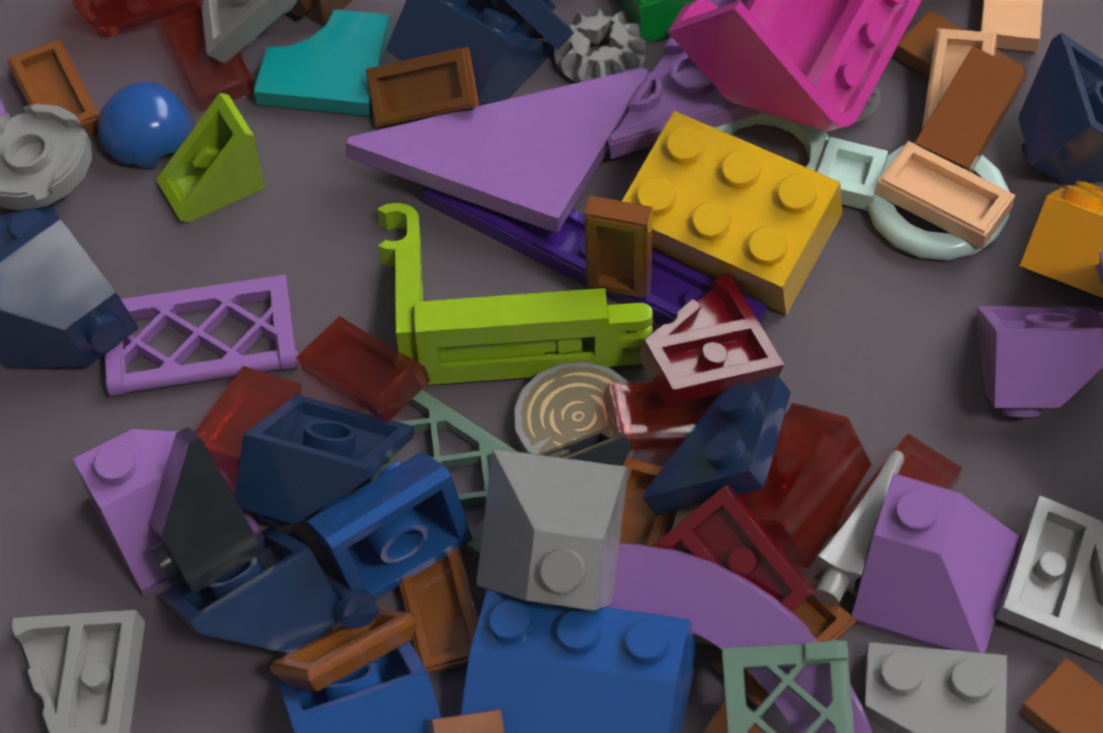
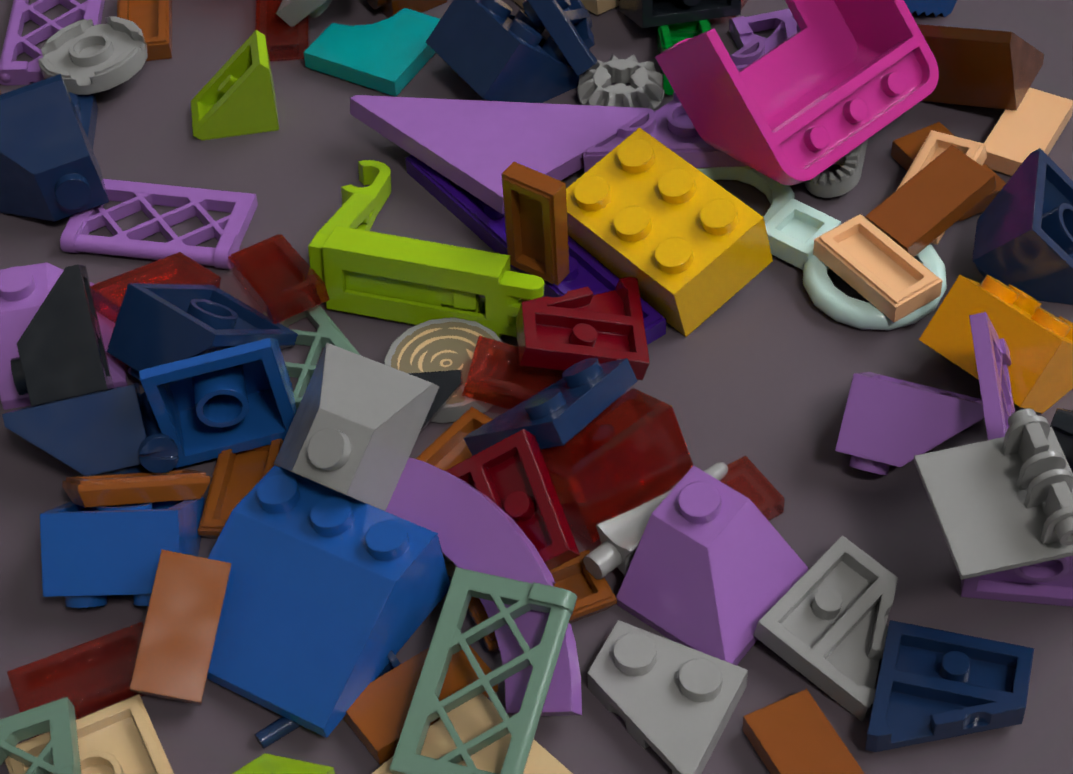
camera: 20 degrees right, 10 degrees down
(143, 124) = (195, 53): blue hair -> none
(422, 87) = (444, 72): dark orange tile -> none

